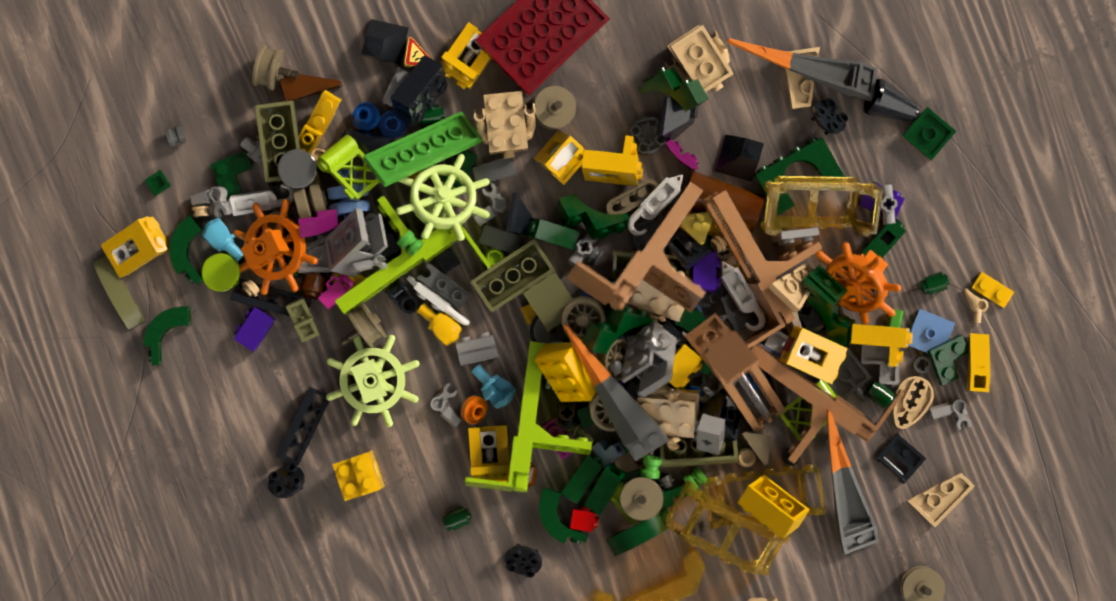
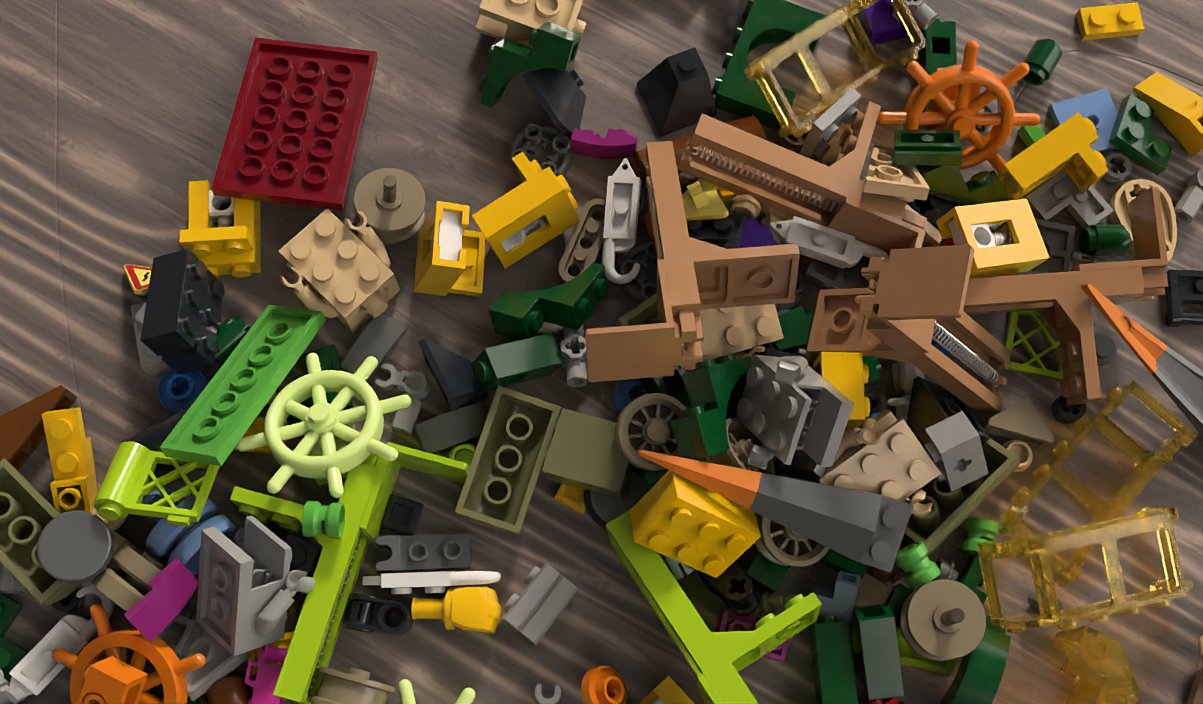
camera: 45 degrees left, 15 degrees down
(366, 116) = (136, 407): blue plate -> none
(385, 41) = (93, 296): black slope -> none
(494, 388) = (608, 637): medium azure piece -> none
(773, 506) = (1126, 482): yellow brick -> none
(976, 304) = (1109, 50): tan animal -> none

